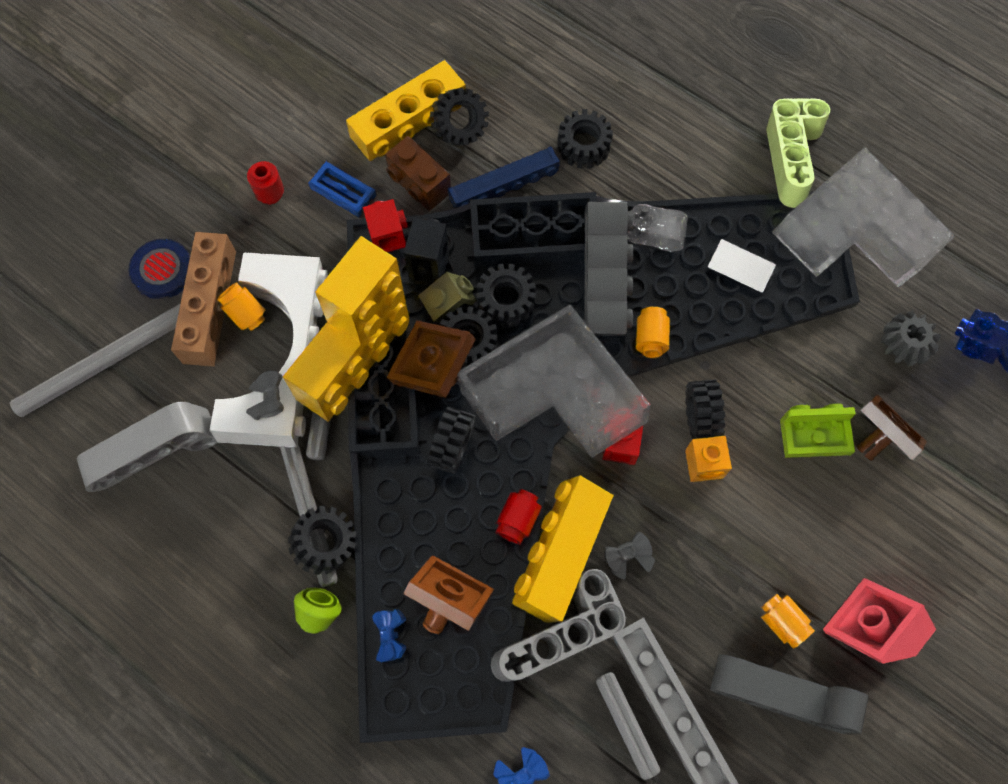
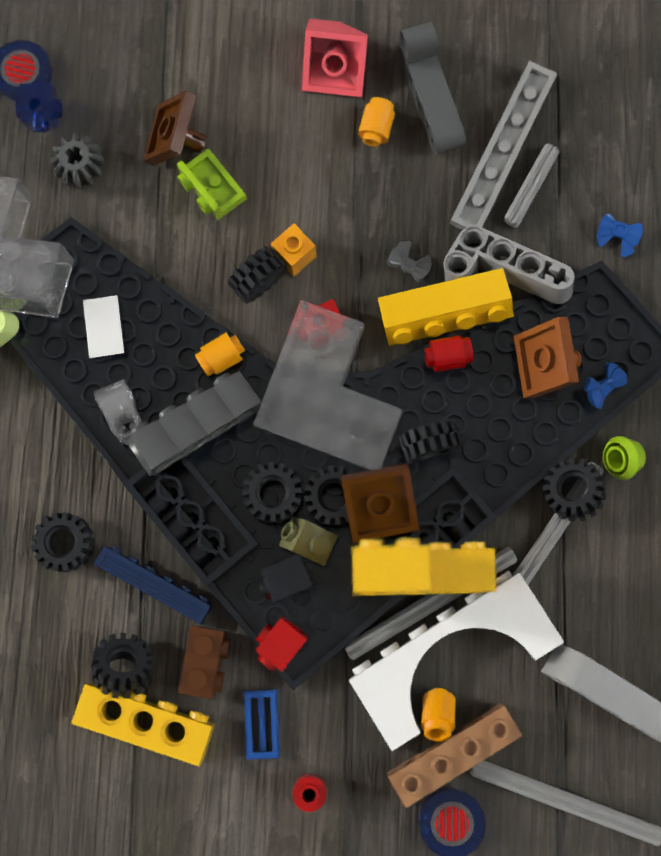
camera: 120 degrees left, 10 degrees up
(268, 385) = (510, 606): dark grey piece -> none

